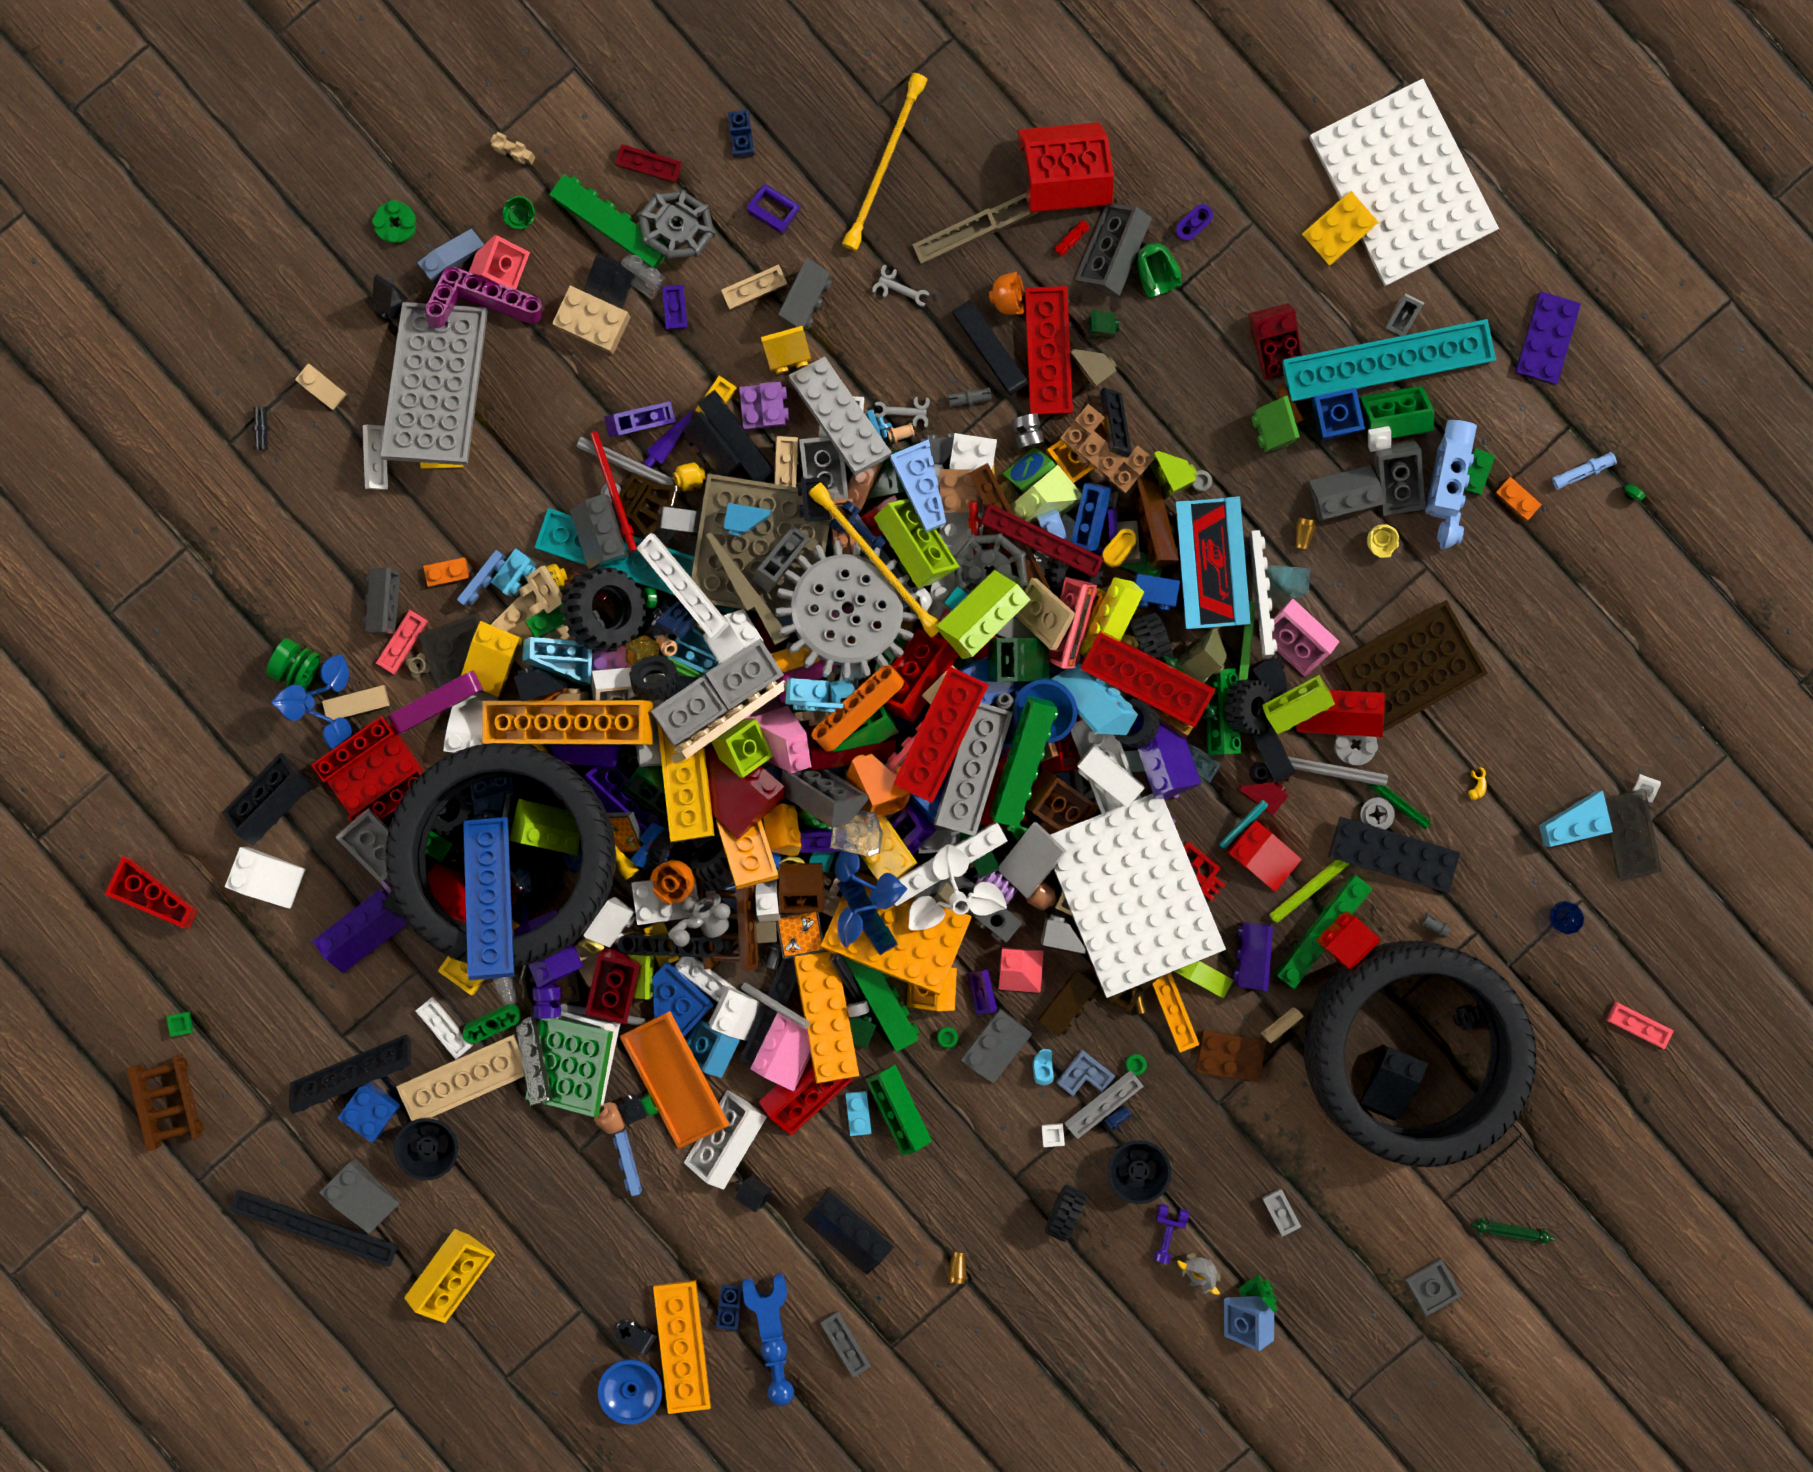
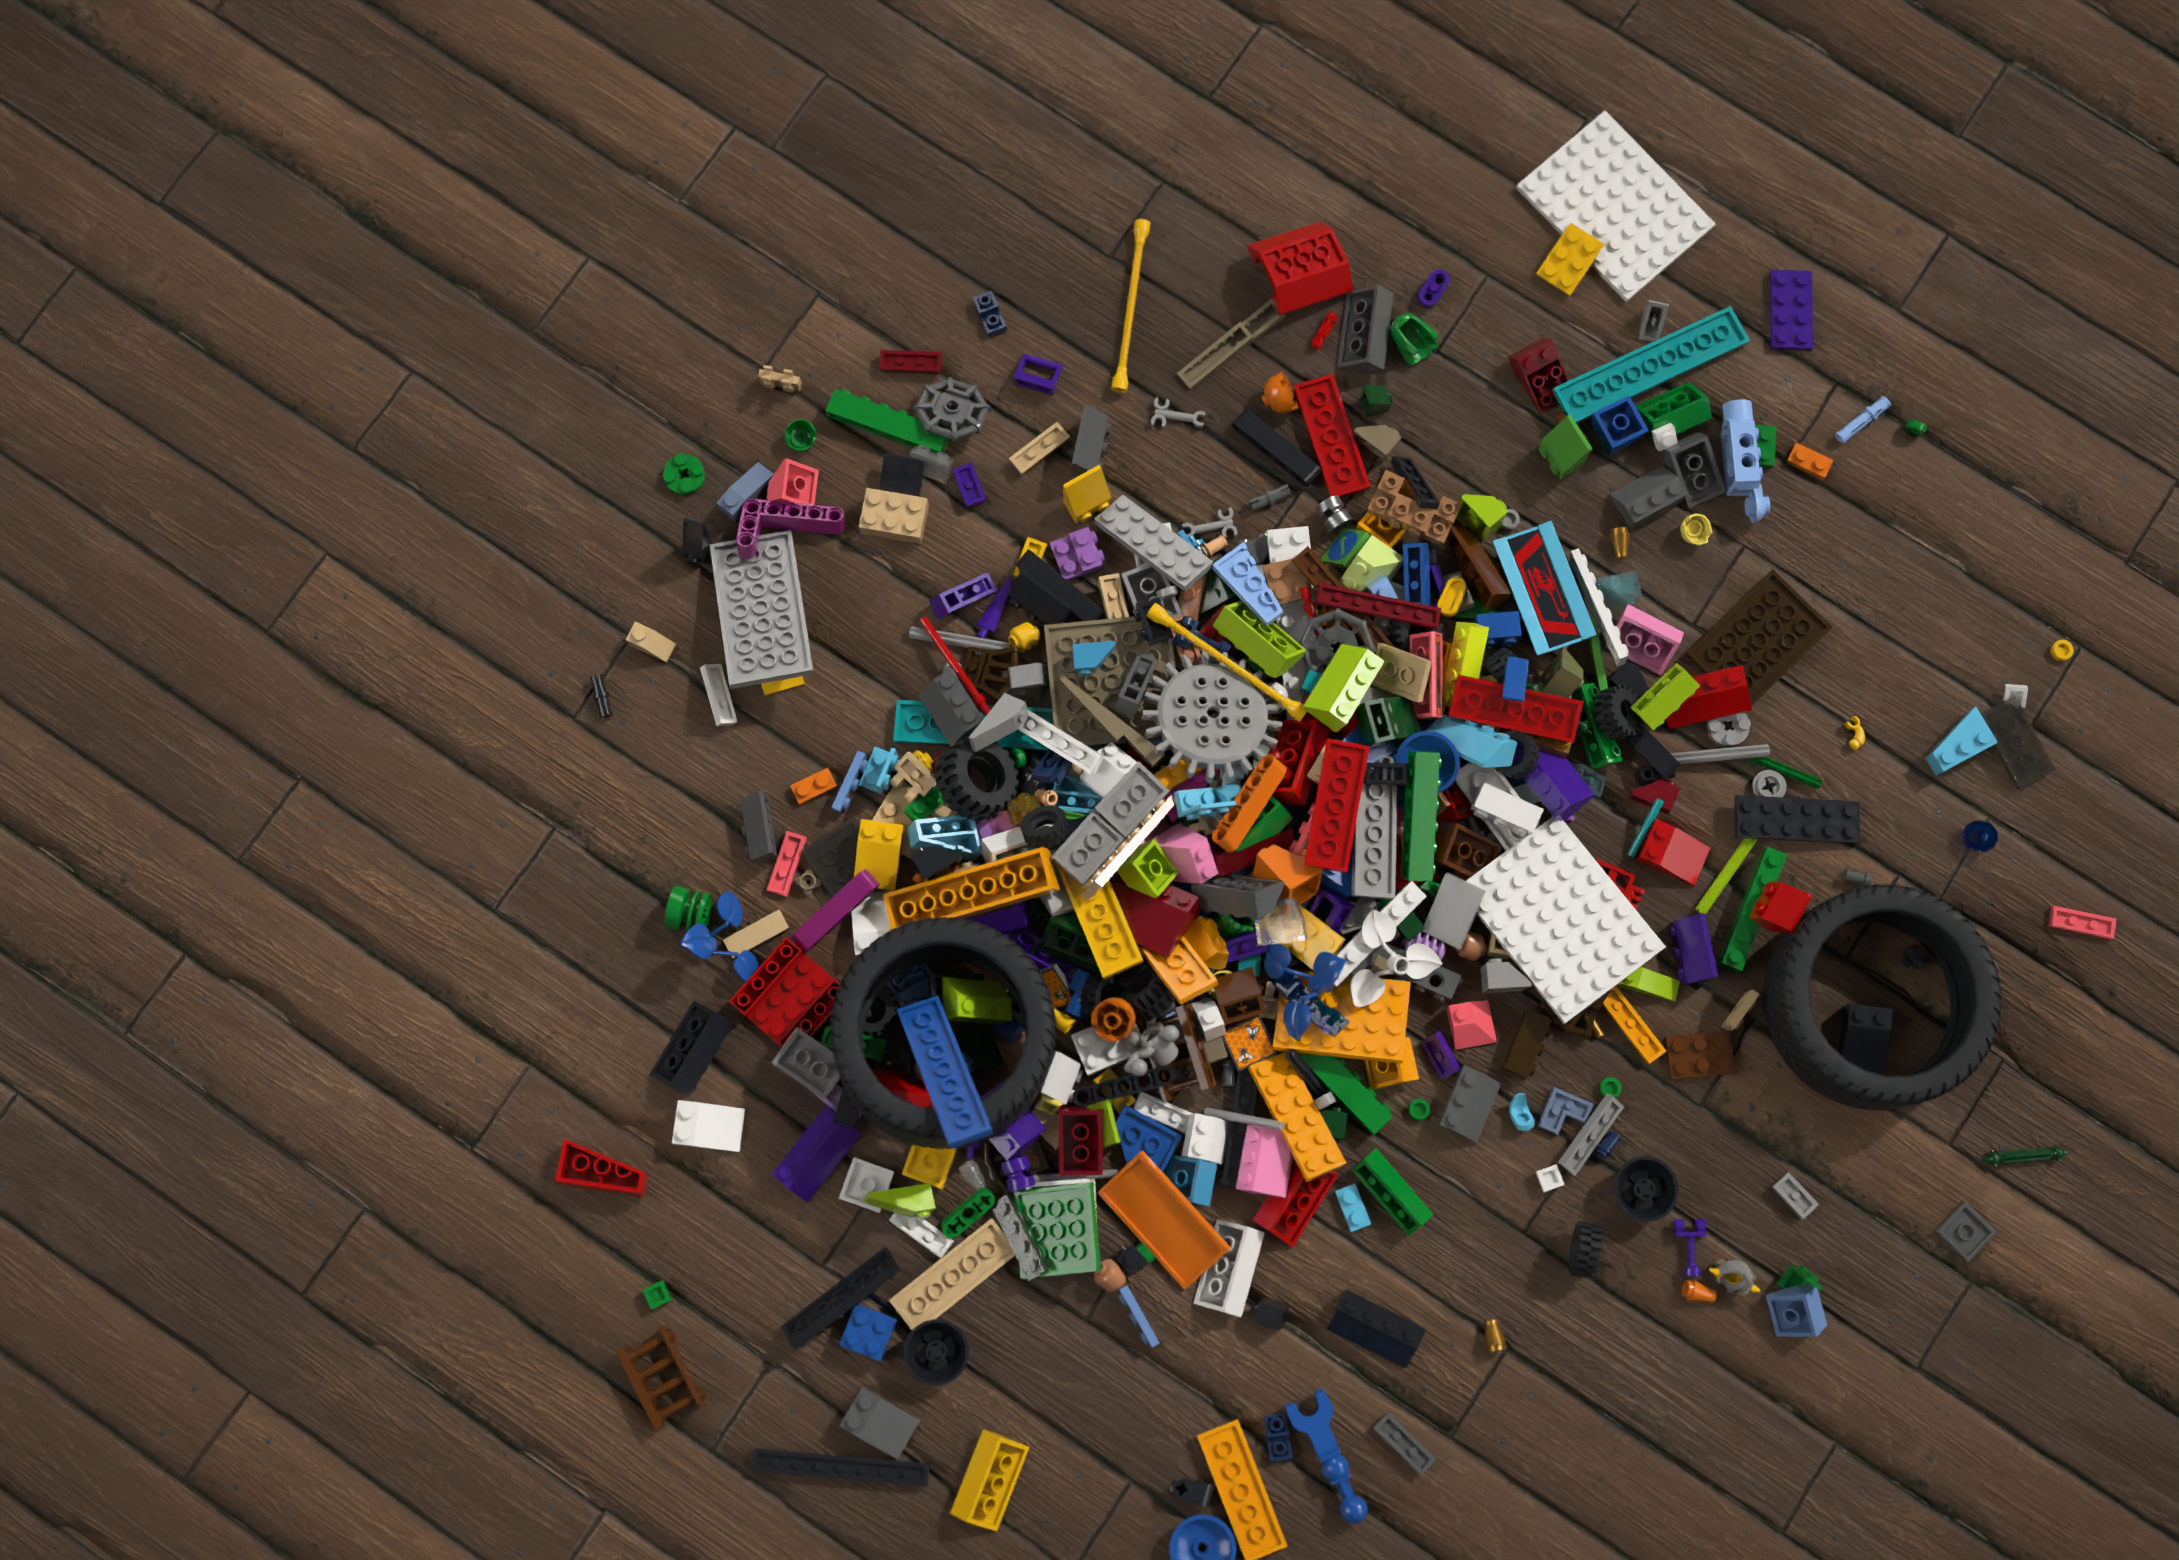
camera: 15 degrees left, 10 degrees down
(402, 972) = (863, 1179): none -> white plate
(436, 999) = (907, 1201): none -> lime slope
(638, 561) = (999, 722): none -> light grey slope
(835, 472) = (1167, 592): none -> light grey tile
(1016, 718) = (1402, 767): none -> black slope
(1153, 651) = (1515, 679): none -> blue slope
(1160, 1276) = (1696, 1291): none -> orange cone
(1707, 754) = (2061, 650): none -> yellow tile

